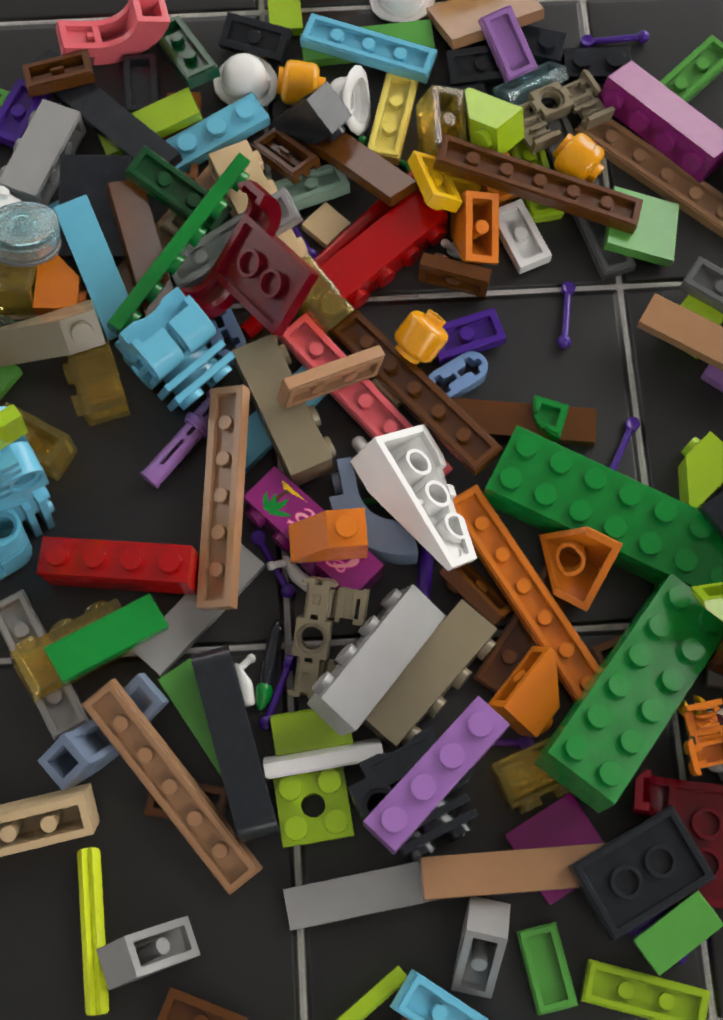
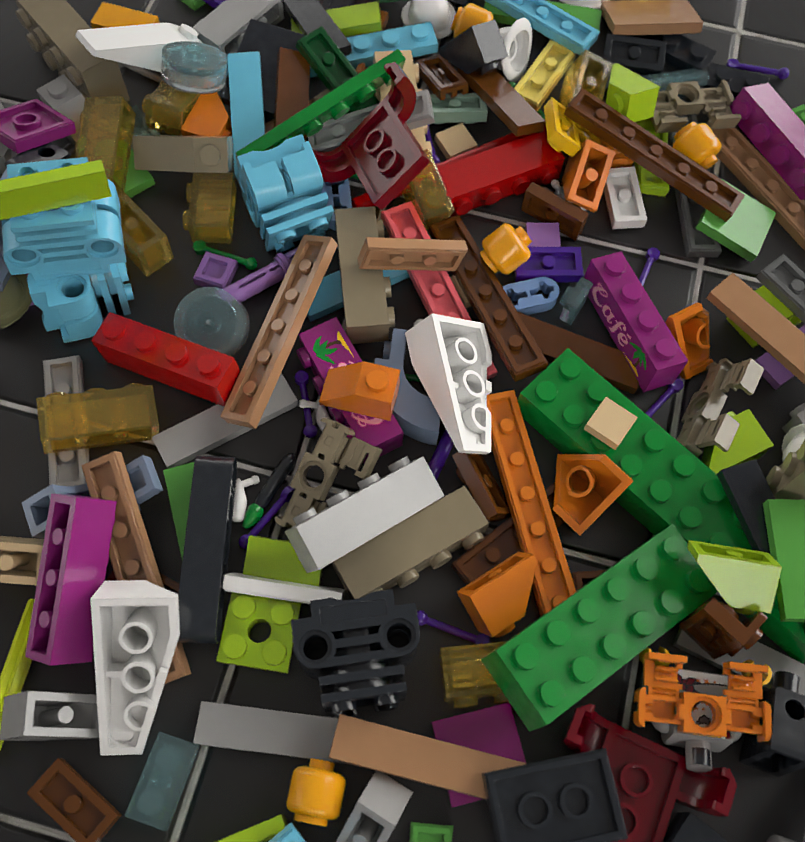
camera: 15 degrees right, 5 degrees down
(100, 430) = (200, 248): none -> green hinge
(106, 639) = (126, 415): green tile -> none
(118, 818) = (68, 576): none -> magenta brick
(127, 452) = (215, 271): none -> medium lavender tile
(149, 510) = (213, 320): none -> clear light blue piece
(207, 864) = (133, 649): none -> white wedge
(274, 974) = (162, 781): none -> clear light blue plate
(421, 935) = (316, 793): none -> light orange head
(435, 775) = (362, 640): medium lavender arch -> none
(451, 304) = (543, 234): none -> medium lavender tile
(505, 366) = (574, 299): none -> clear light blue plate
(507, 44) = (662, 41): medium lavender tile -> none
(549, 416) = (601, 352): green tile -> none
(571, 373) = (634, 322): none -> magenta brick
(583, 493) = (610, 423): none -> tan tile
(631, 376) = (691, 332): none -> orange slope
(668, 437) = (701, 418): none -> dark tan piece

